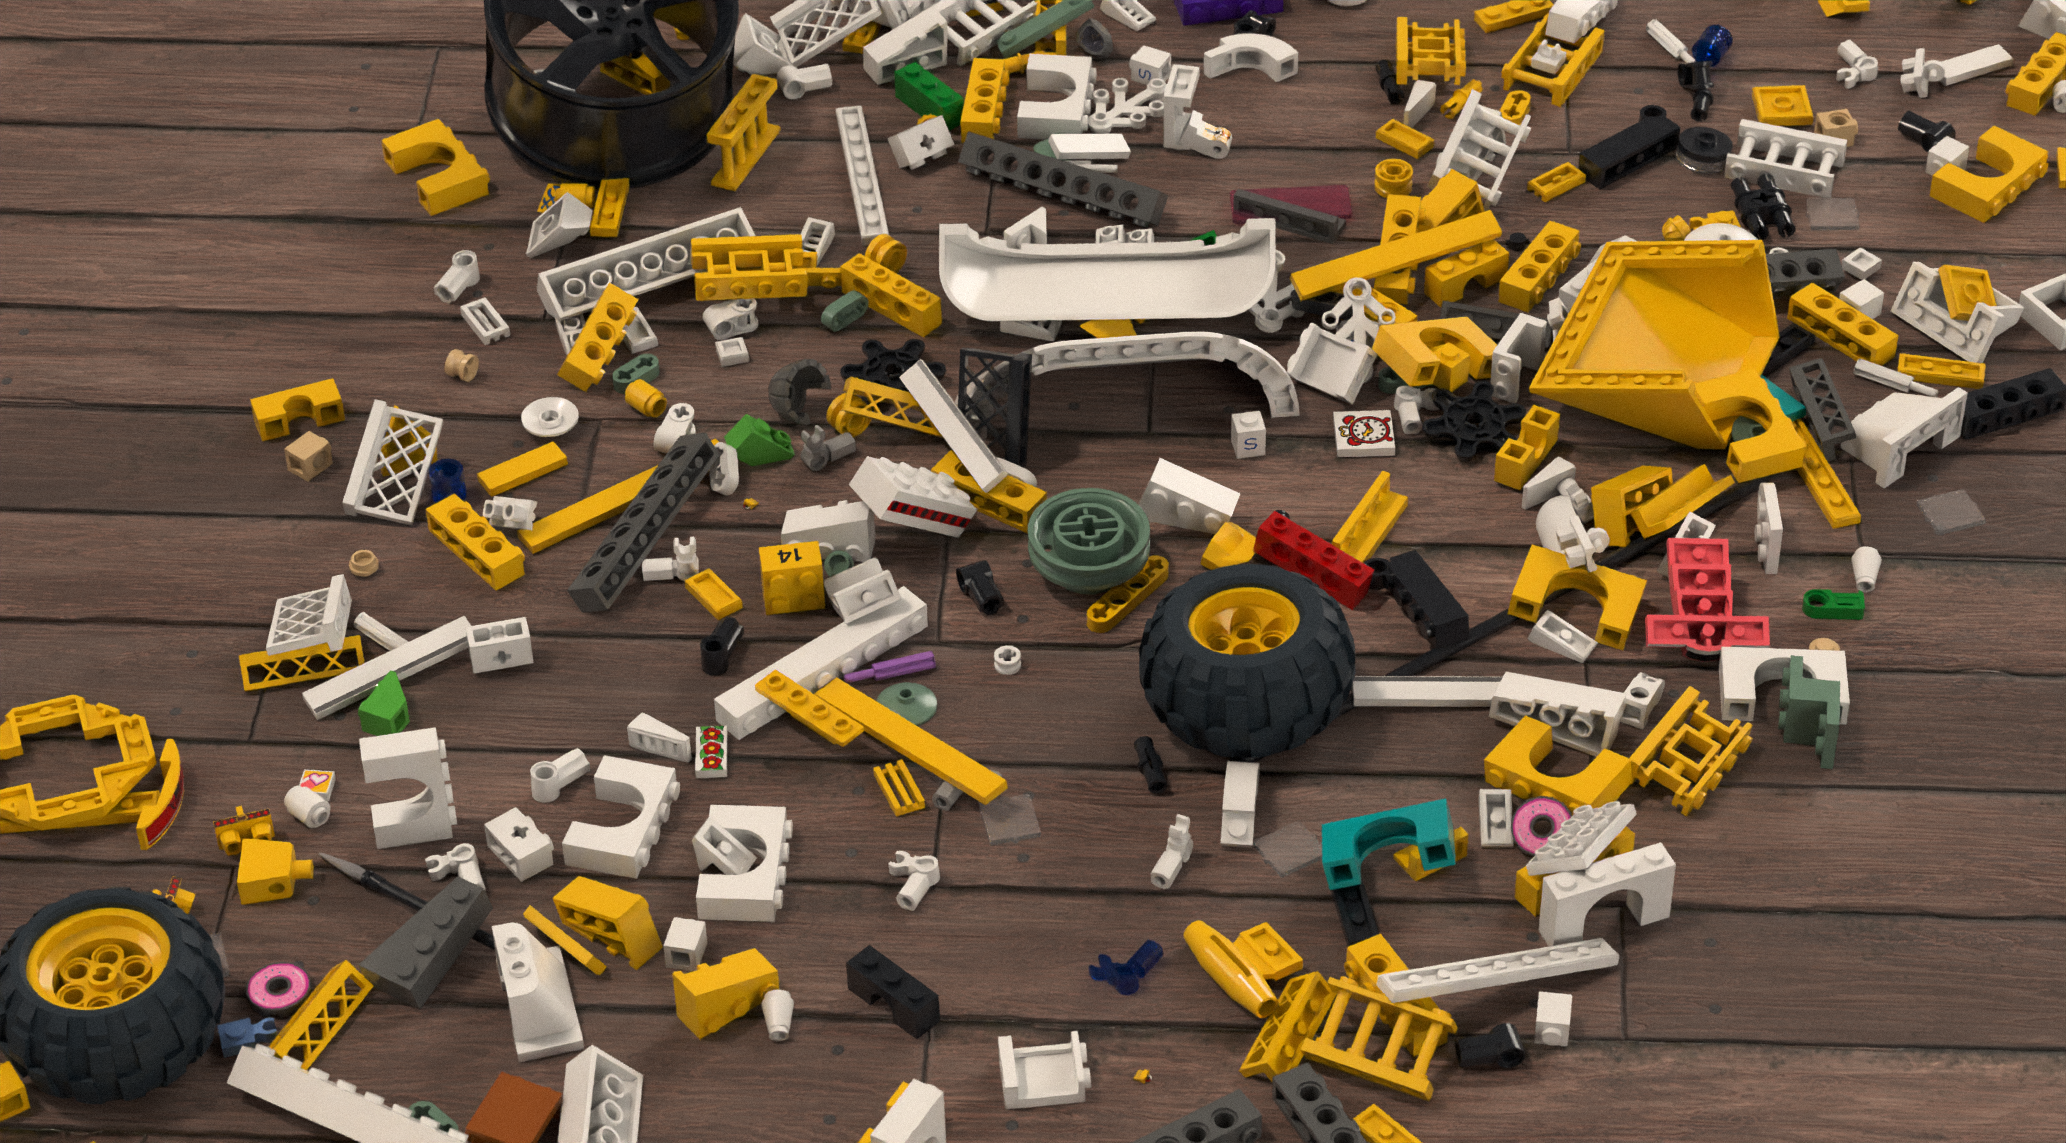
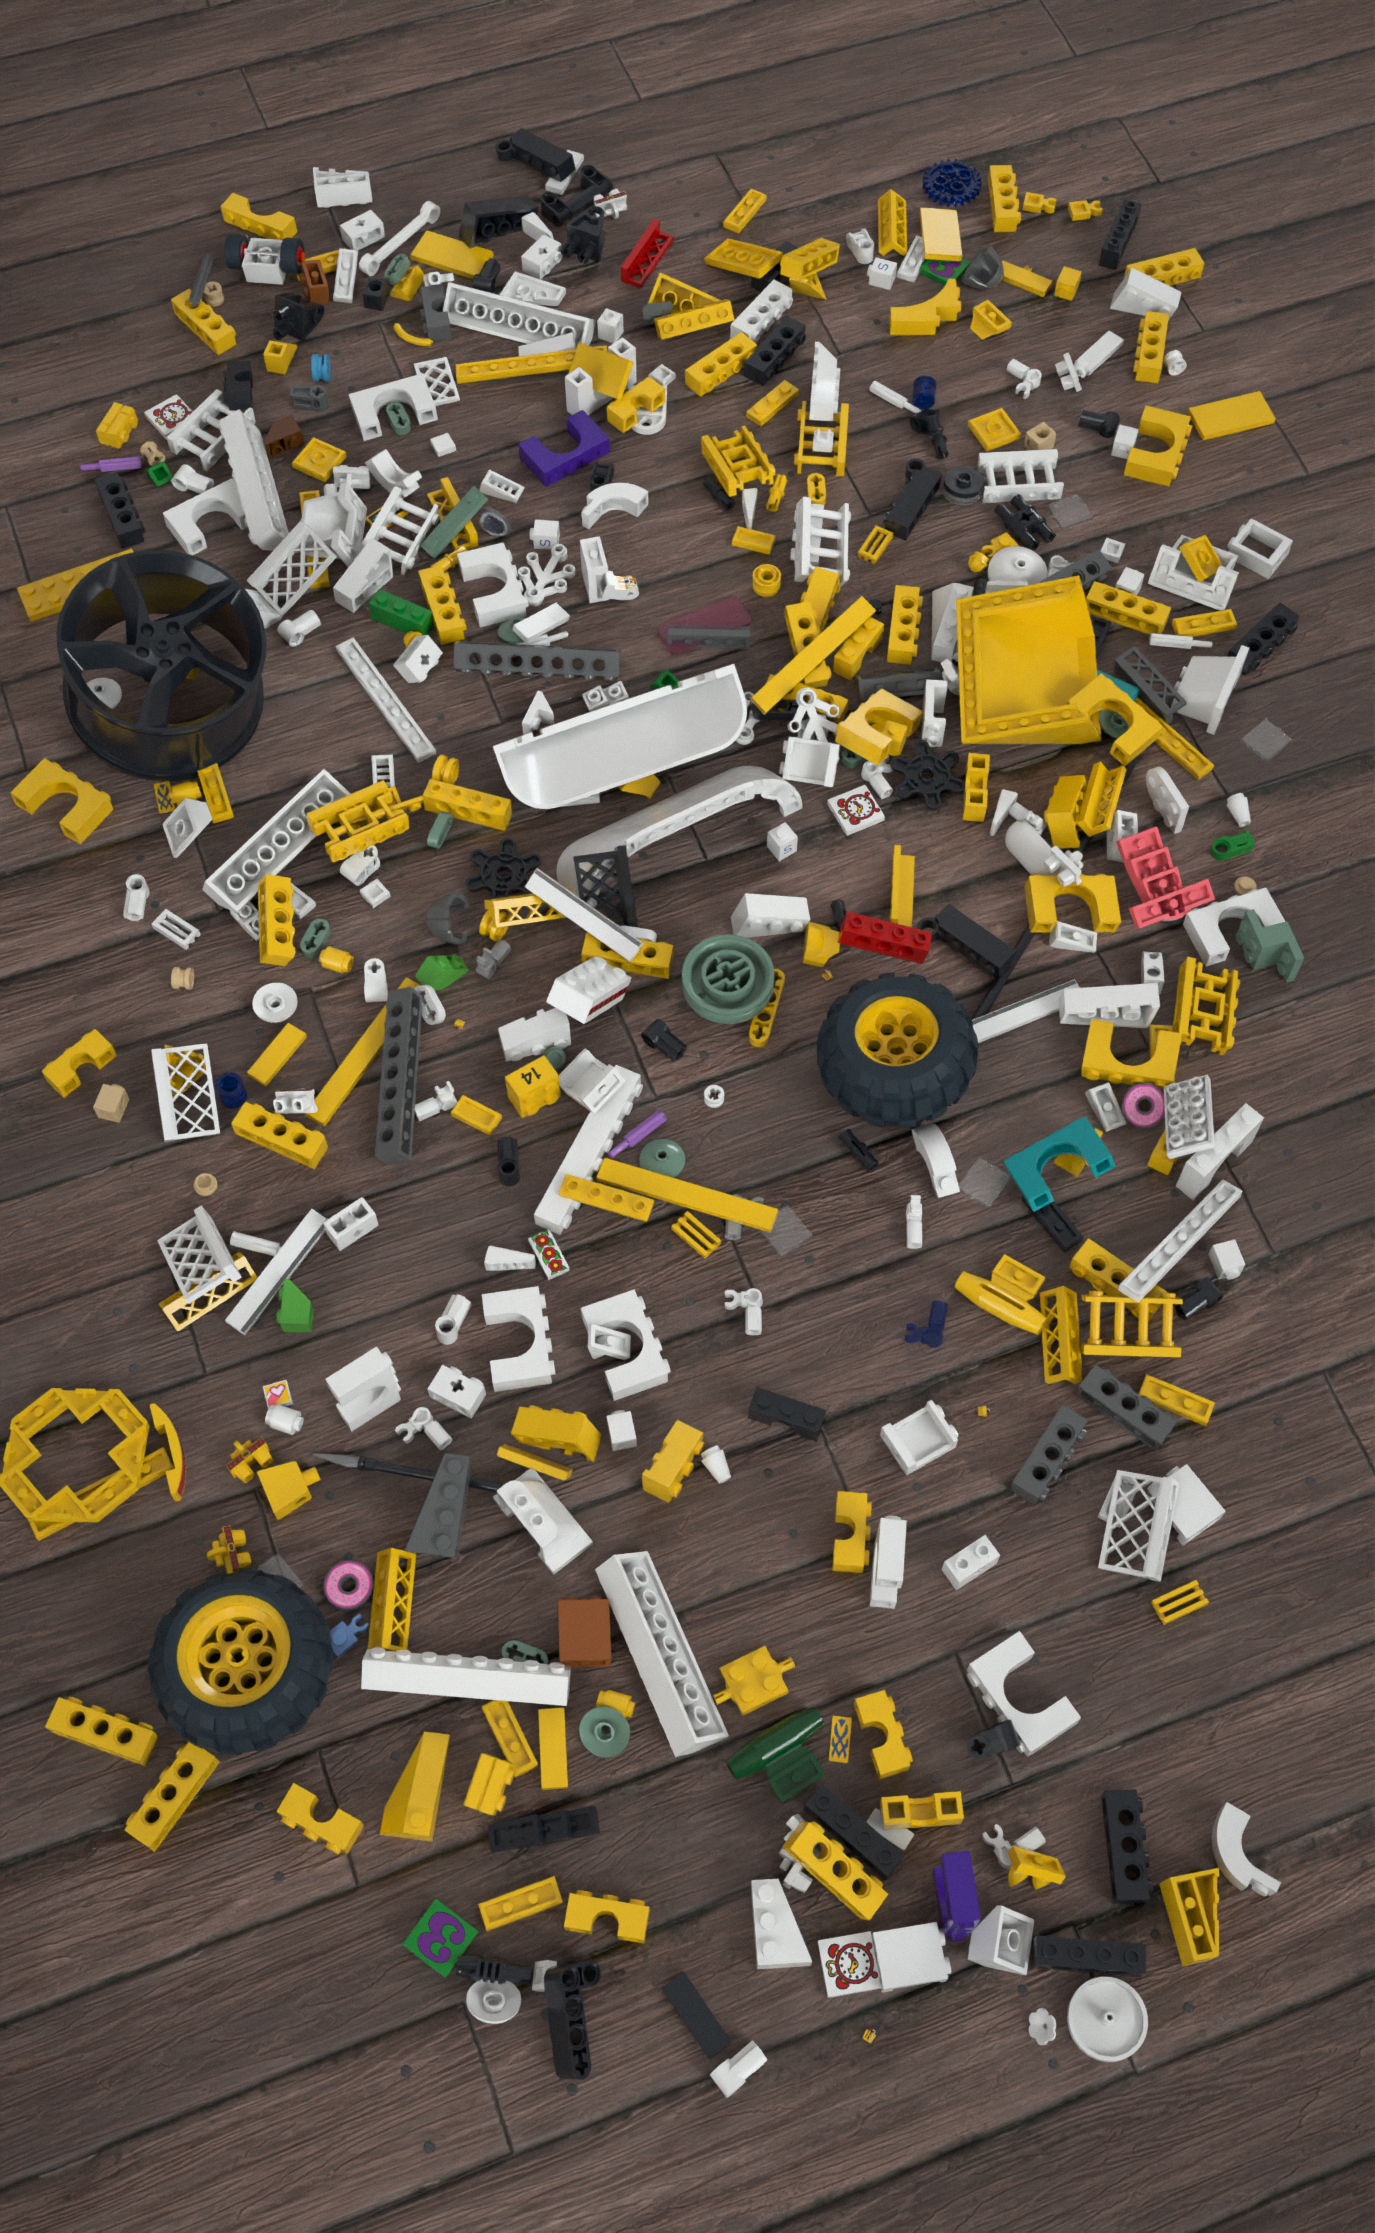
camera: 25 degrees left, 20 degrees up
(736, 120) = (287, 696): yellow fence -> none

